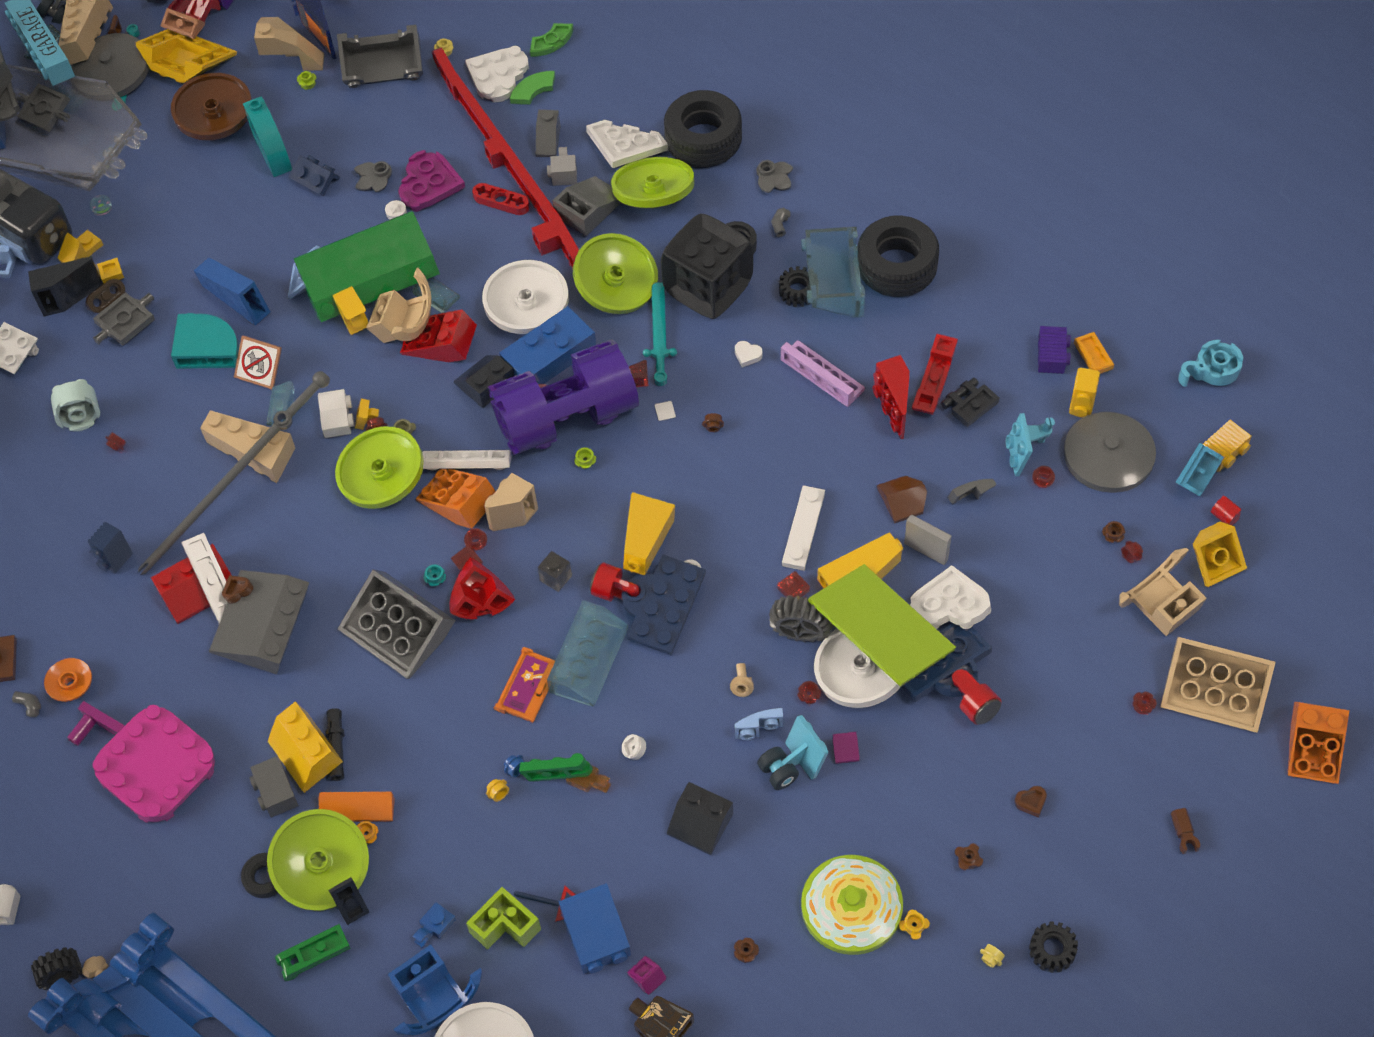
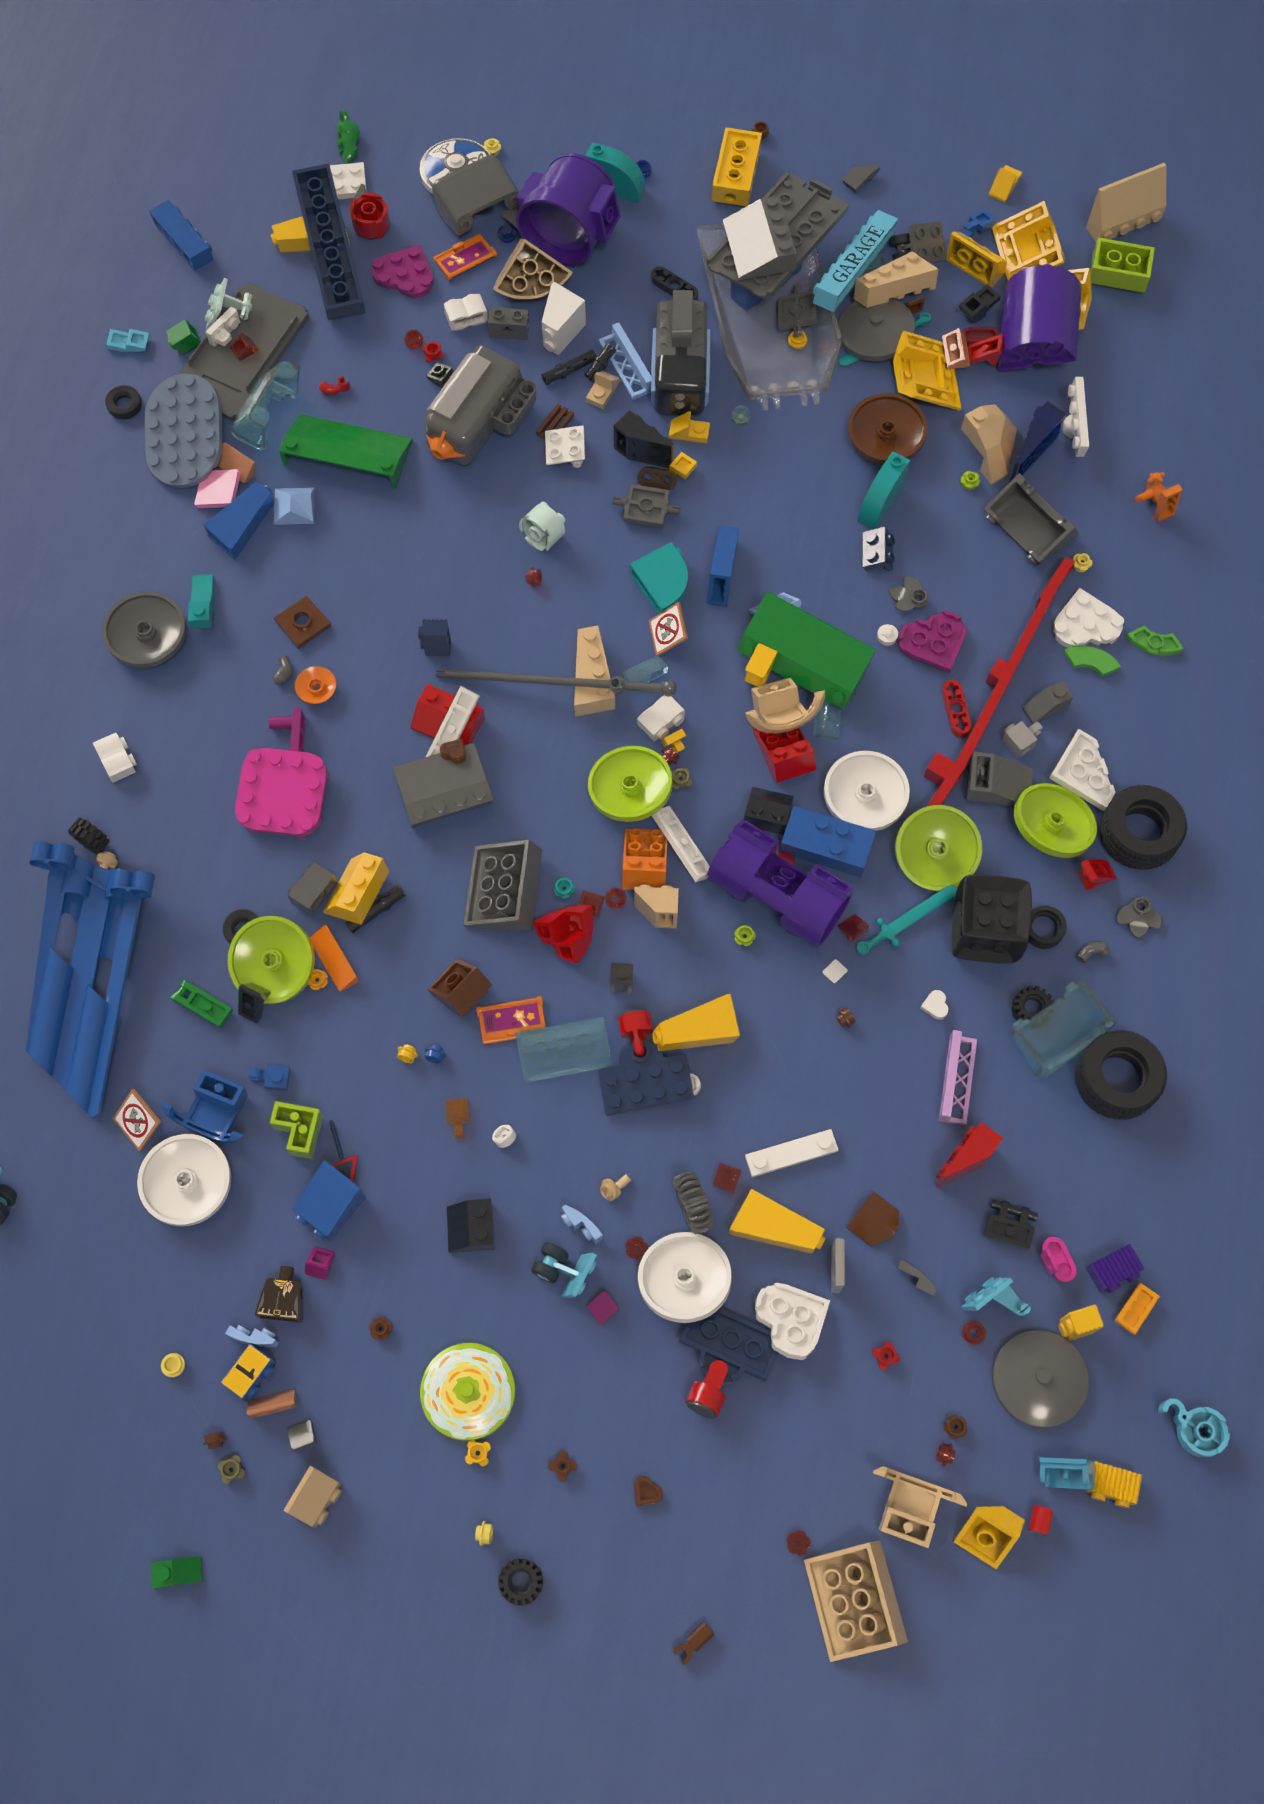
camera: 55 degrees right, 10 degrees up
(70, 126) = (797, 342): none -> yellow plate
(465, 709) = (460, 987): none -> reddish brown slope
(556, 768) = (447, 1088): green plate -> none
(716, 185) = (1096, 873): none -> red slope
(882, 624) = (723, 1274): lime piece -> none
(935, 374) = (1016, 1179): red slope -> none
(1020, 384) = (1058, 1259): none -> dark pink bracket
(1025, 545) = (888, 1348): none -> red plate
(1317, 742) = (852, 1722): orange slope -> none

